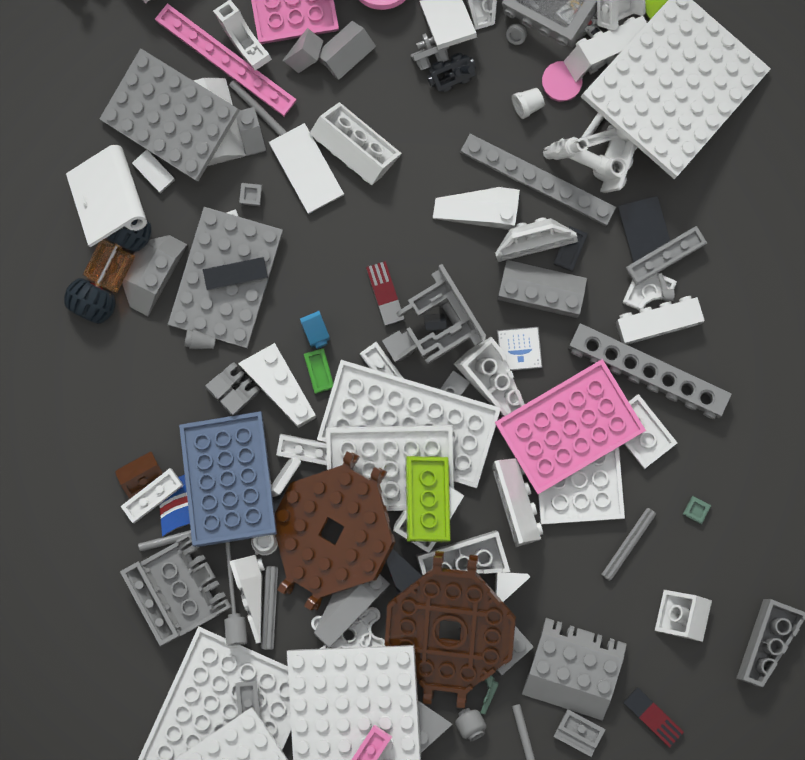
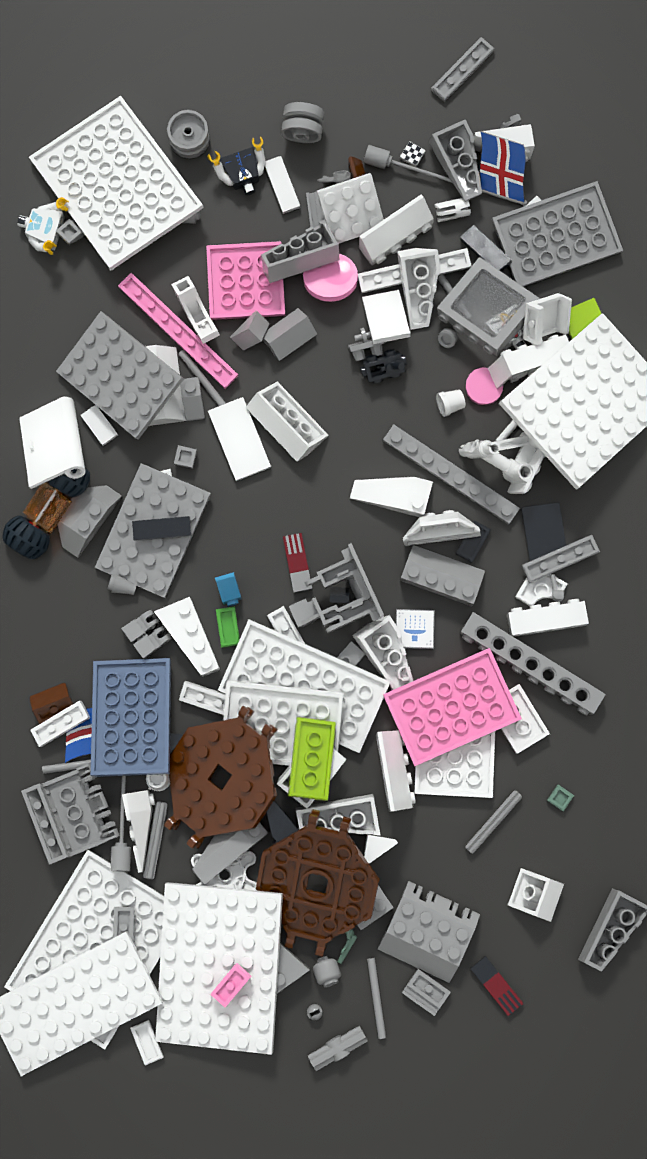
camera: 10 degrees right, 0 degrees up
(284, 476) = (183, 720): white tile -> none

